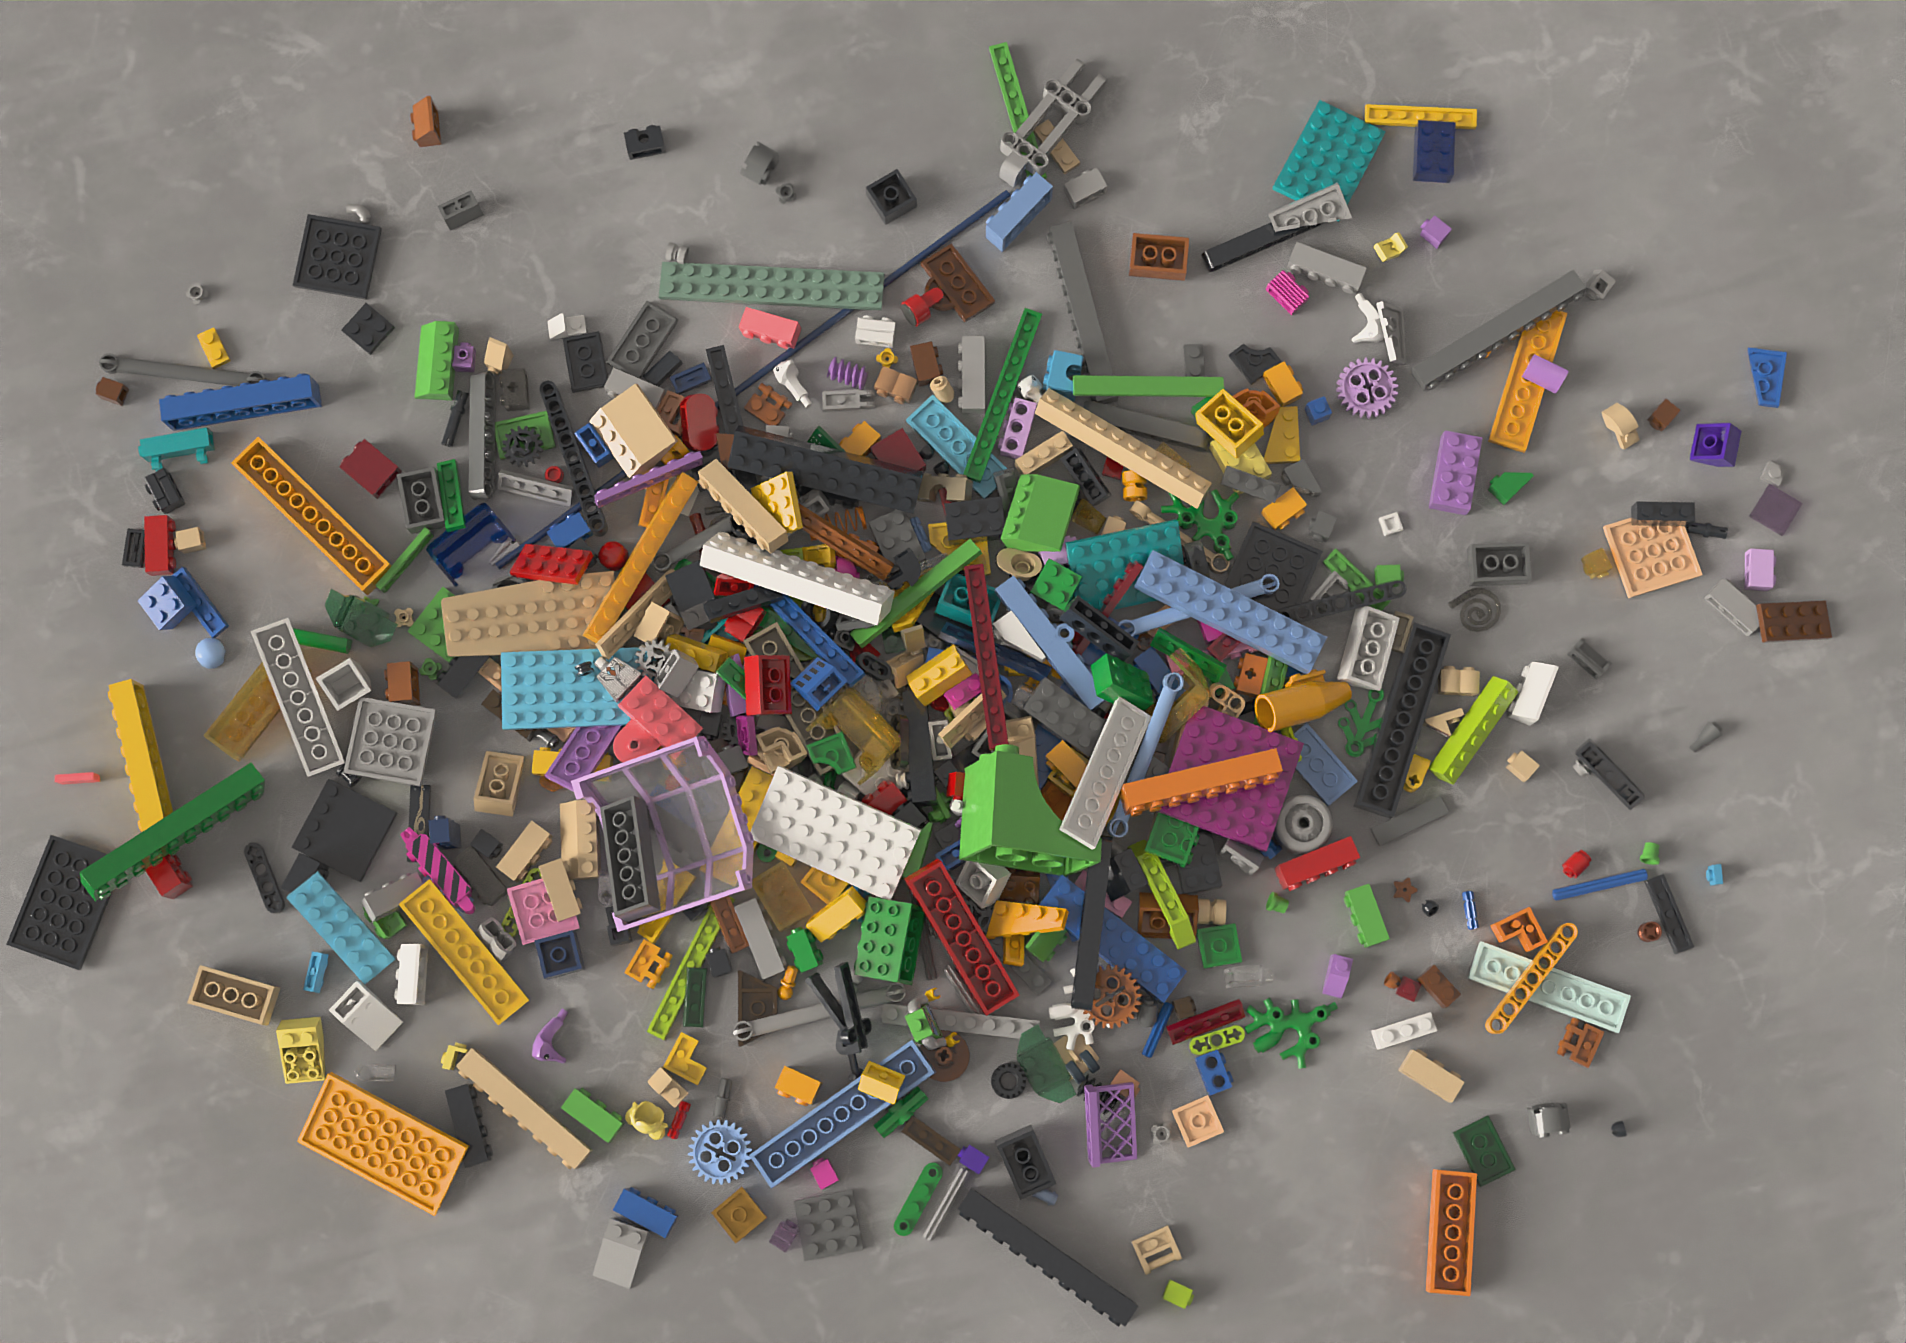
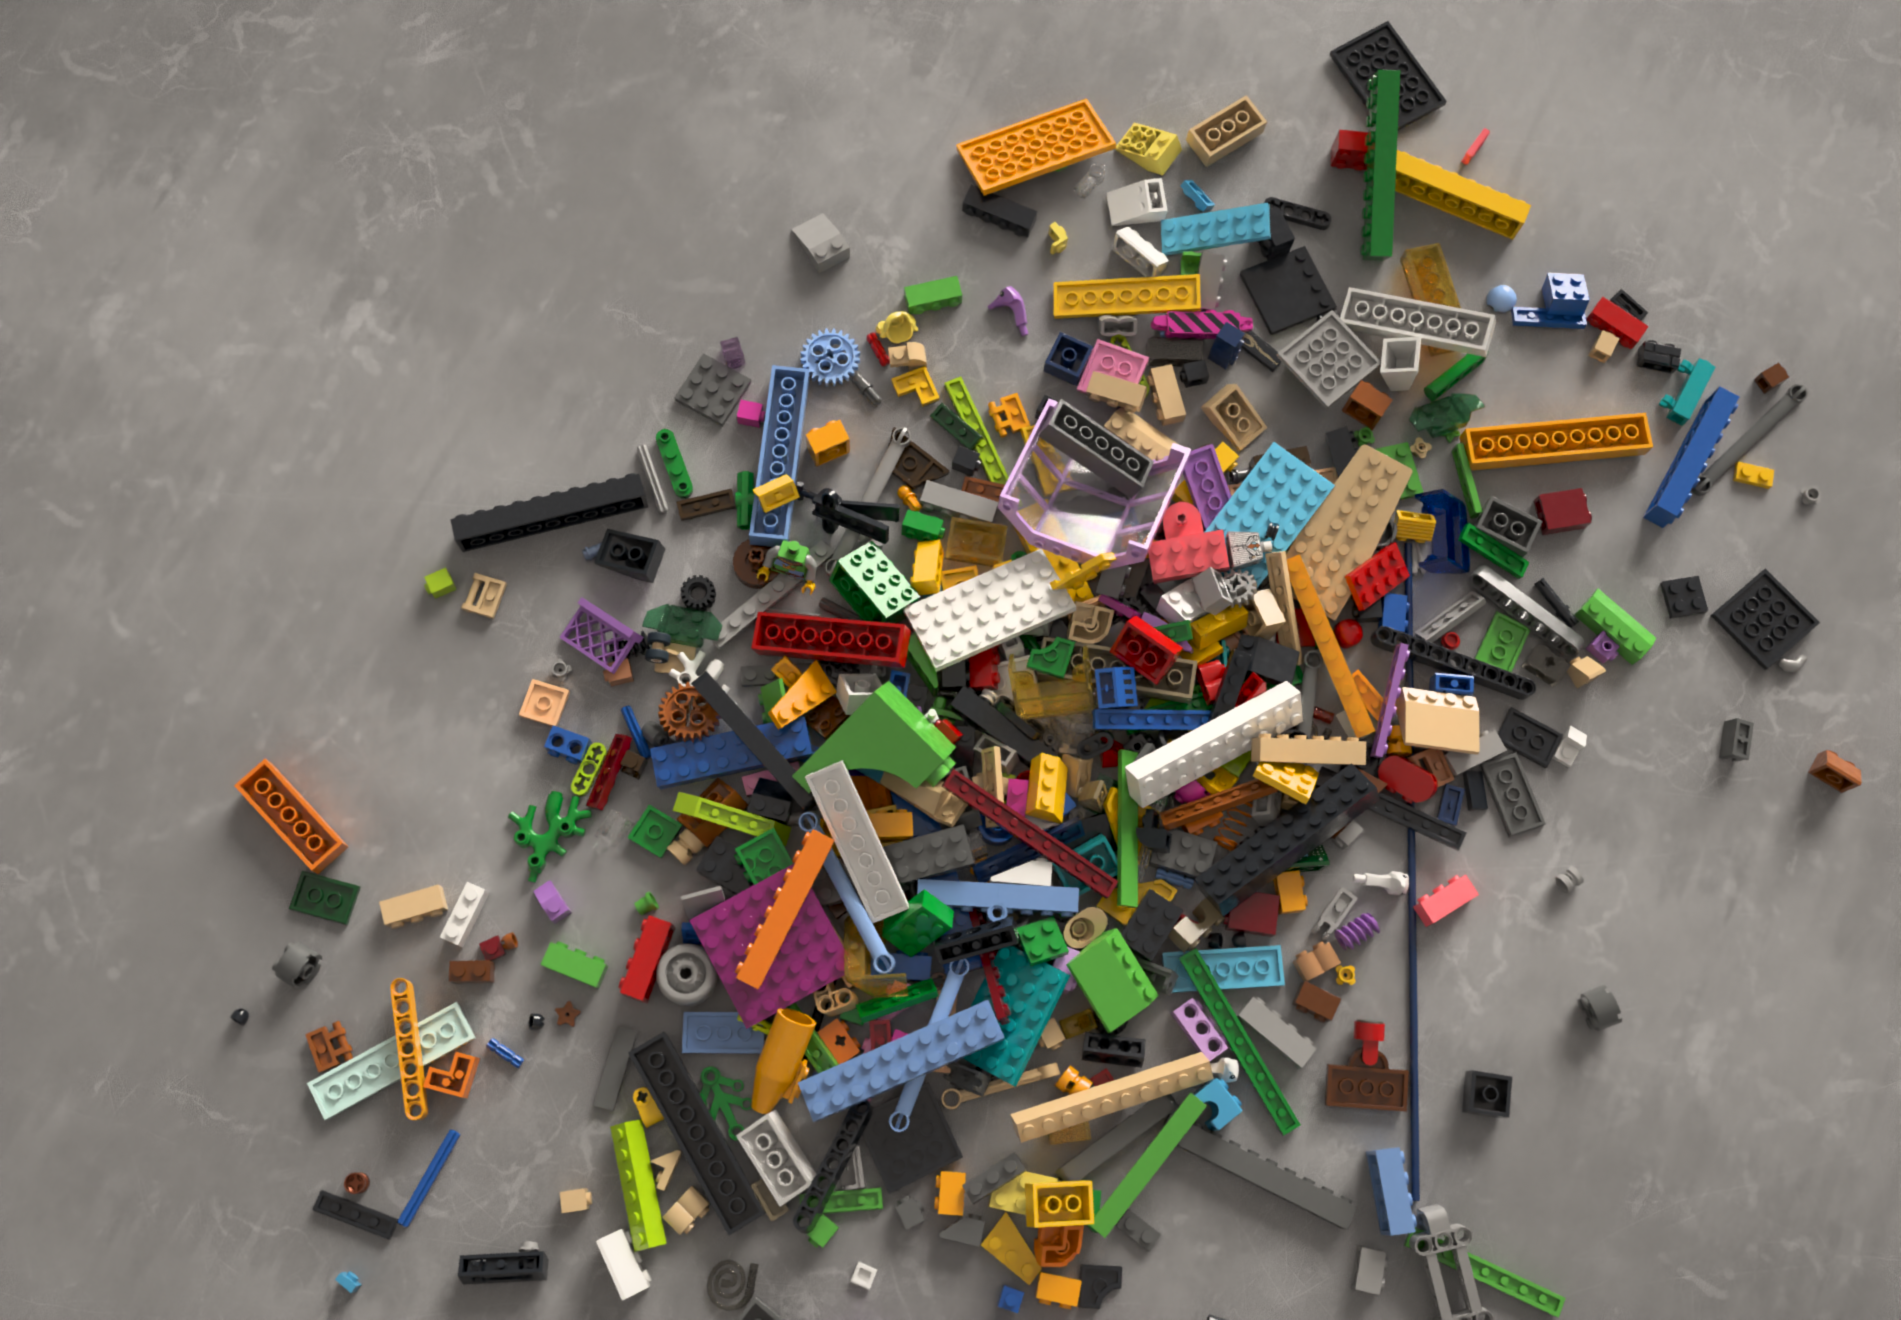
camera: 120 degrees right, 5 degrees down
(479, 570) = (1414, 526): none -> yellow brick
(515, 451) = (1498, 626): black gear -> none
(524, 1109) = (978, 255): tan brick -> none
(646, 1212) = (833, 277): blue brick -> none
(654, 145) = (1682, 938): black brick -> none
(739, 1215) = (775, 336): pearl gold plate -> none
(744, 777) = (1076, 578): none -> yellow wing
(765, 411) = (1378, 841): dark orange plate -> none
(771, 286) = (1480, 934): sand green plate -> none
(786, 188) = (1562, 1009): dark grey plate -> none
(875, 332) = (1376, 983): white brick -> none
(942, 389) = (1282, 995): tan brick -> none
(973, 1158) = (666, 522): dark purple brick -> none
(1044, 454) = (1159, 1031): tan brick -> none
(1061, 153) = (1417, 1279): tan plate -> none
(1159, 256) = (1256, 1279): dark orange brick -> none
(1207, 526) = (989, 1114): green plant -> none
(1576, 864) = (461, 1172): red brick -> none
(1650, 854) = (413, 1243): bright green piece -> none

